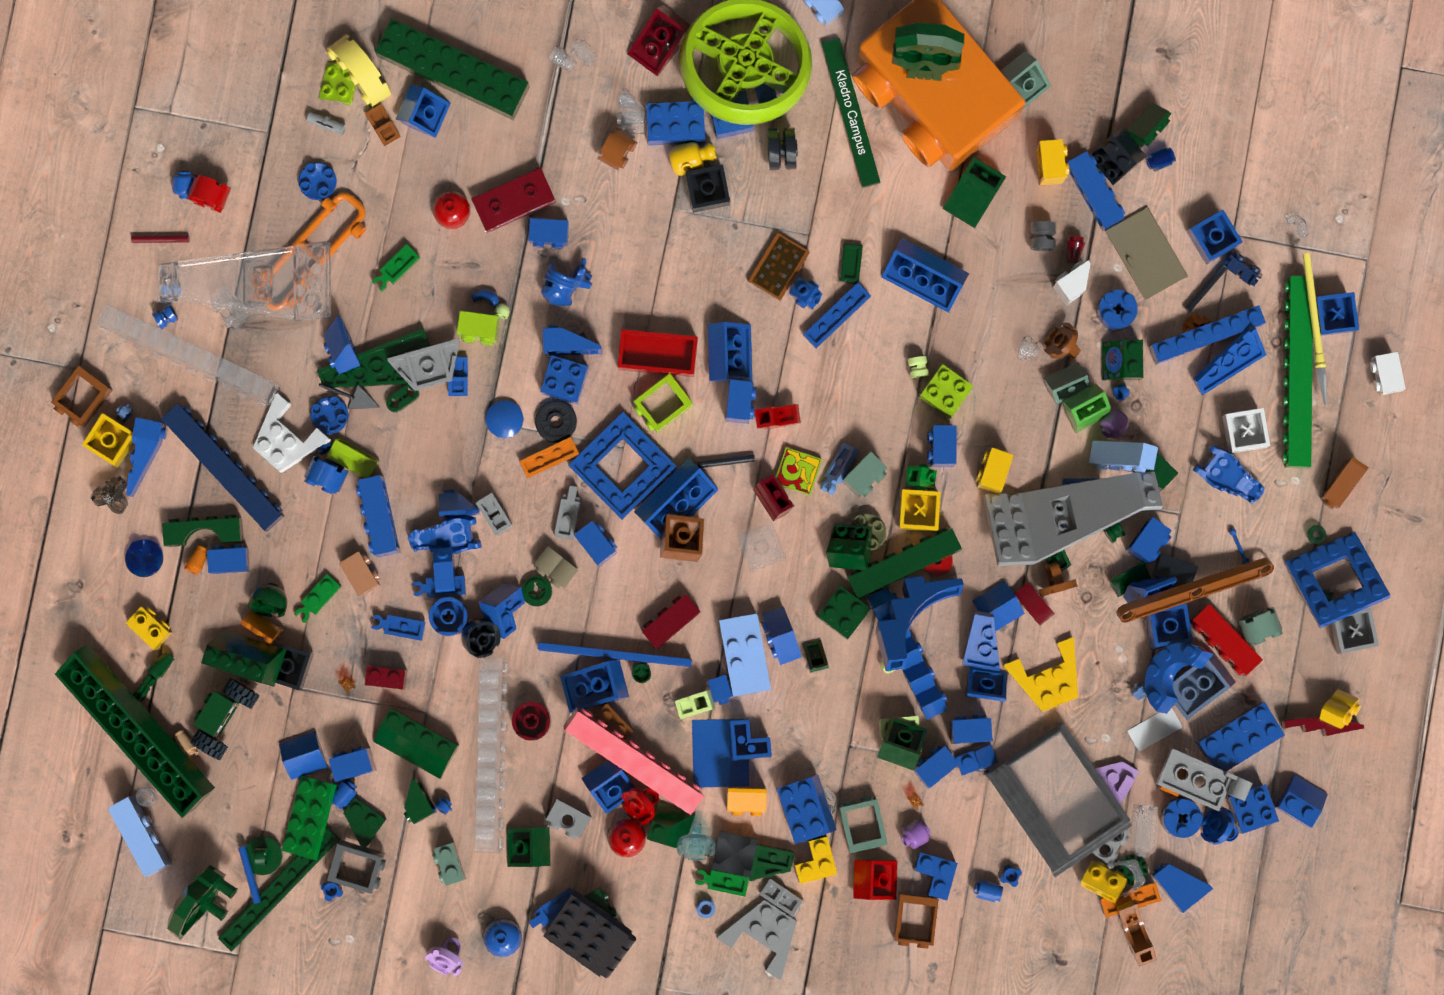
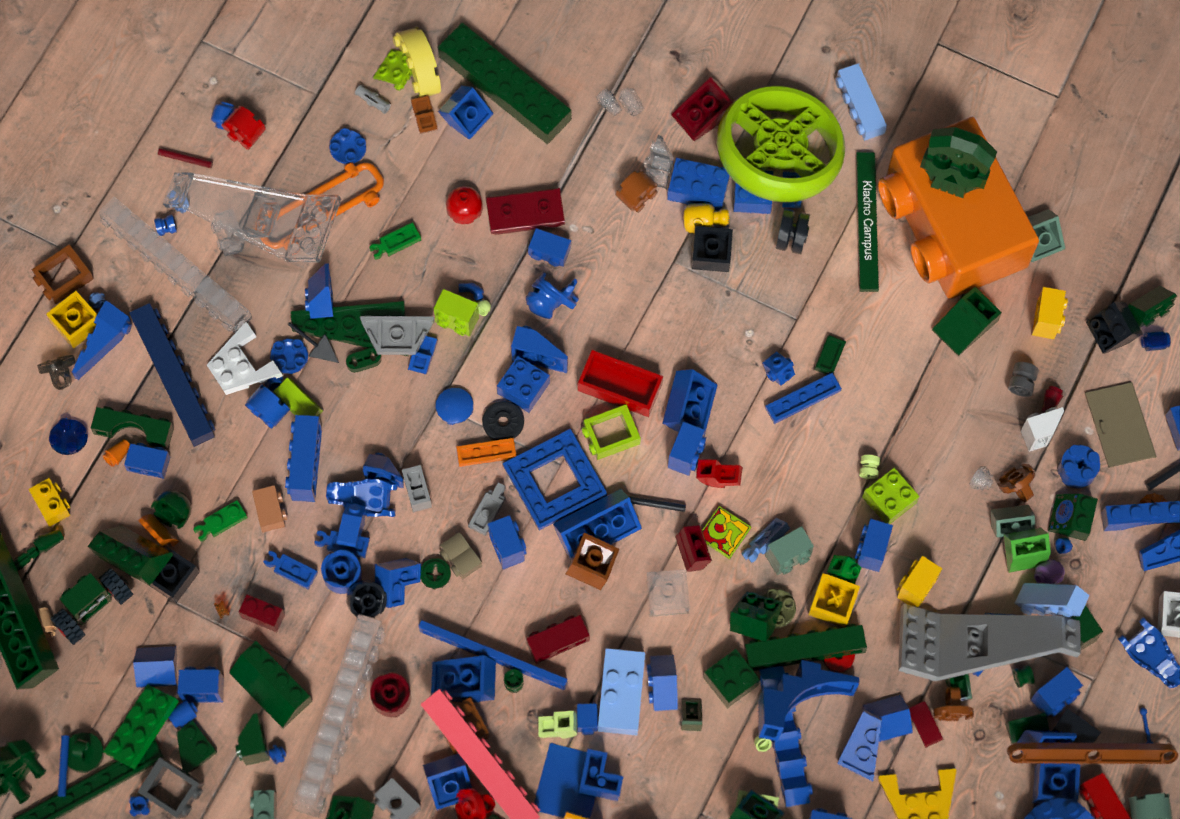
camera: 15 degrees right, 15 degrees down
(778, 266) = (759, 339): tile -> none
(925, 275) = (899, 384): blue slope -> none
(986, 684) = (855, 791): blue slope -> none
(1095, 191) = (1084, 353): blue brick -> none

